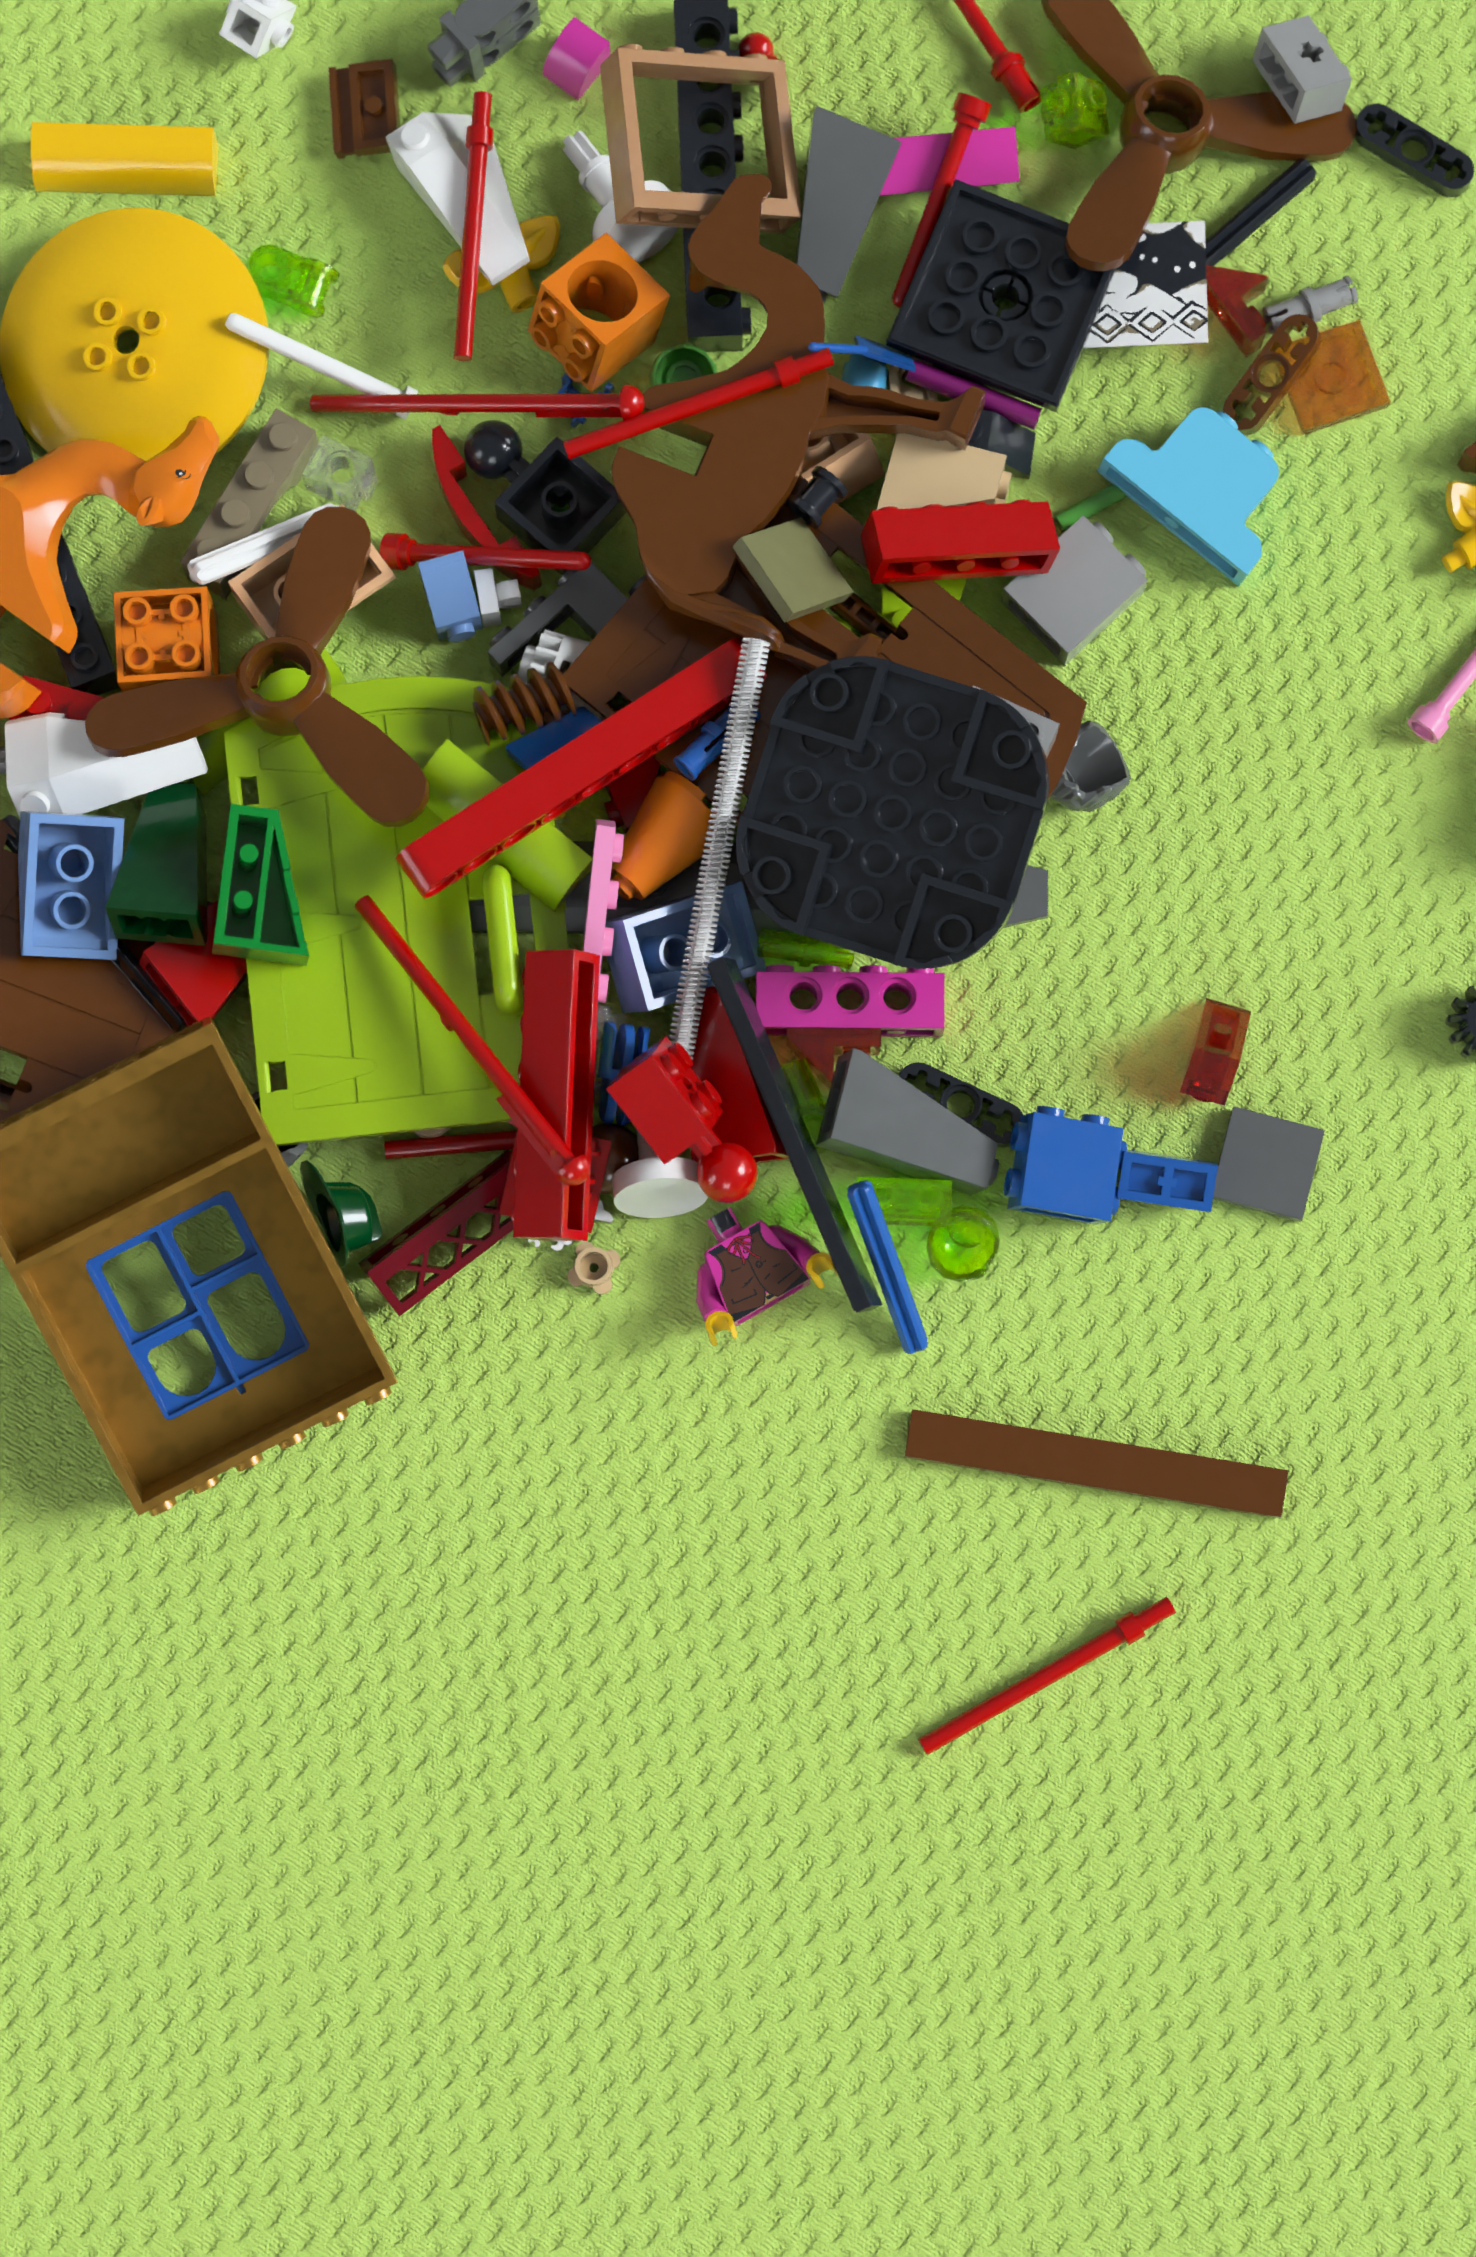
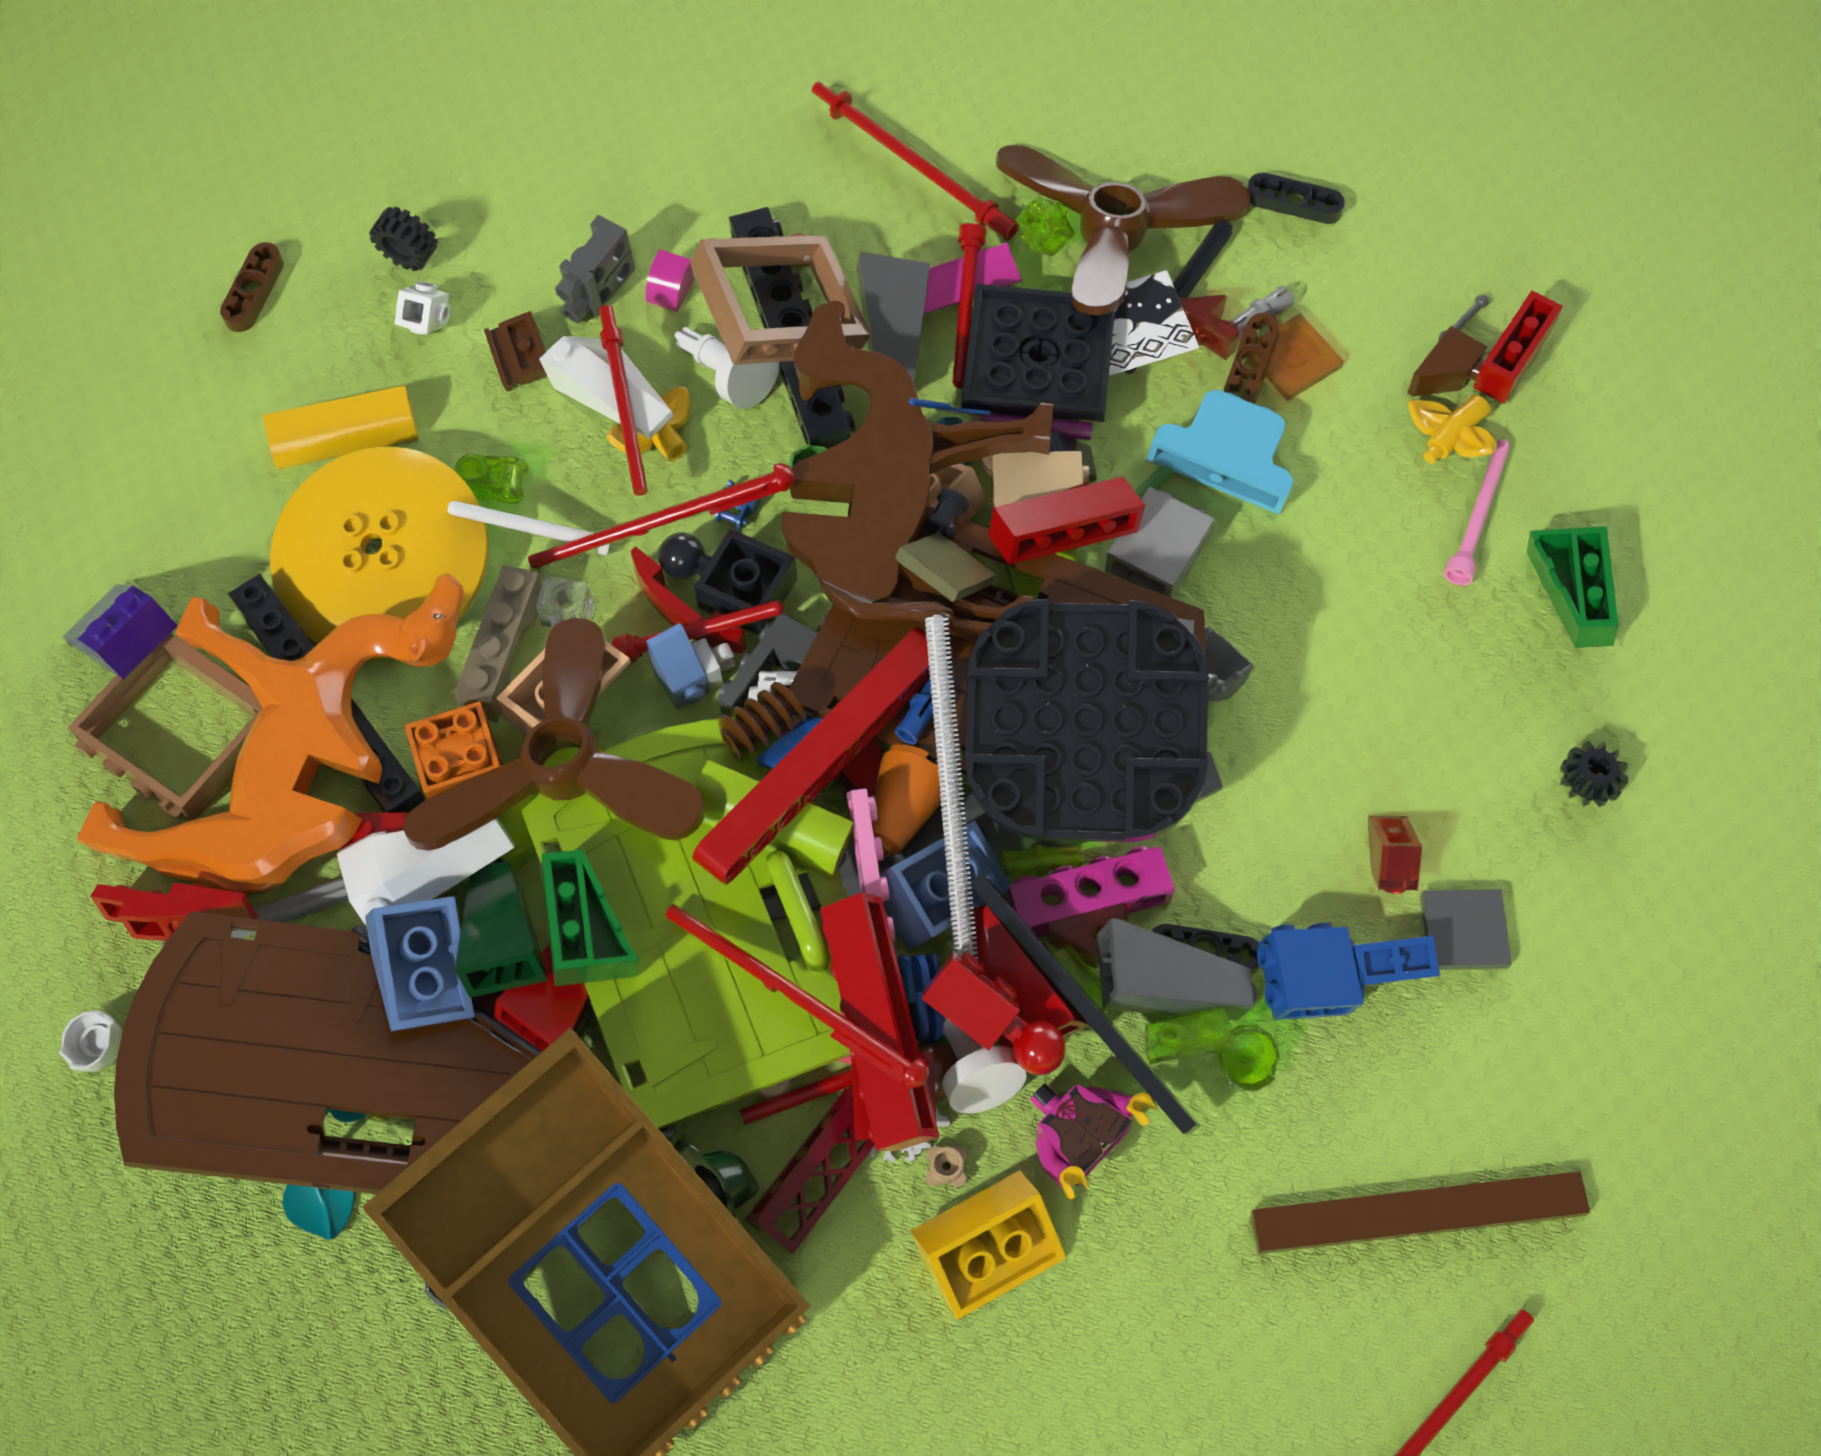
camera: 15 degrees left, 15 degrees down
(246, 550) = (501, 674): white axle -> none
(605, 281) = (735, 434): orange brick -> none
(613, 1365) = (989, 1244): none -> yellow slope
(784, 373) = (895, 426): red bar -> none
(887, 1266) = (1195, 1092): blue axle -> none
(1302, 69) = (1199, 160): light grey brick -> none

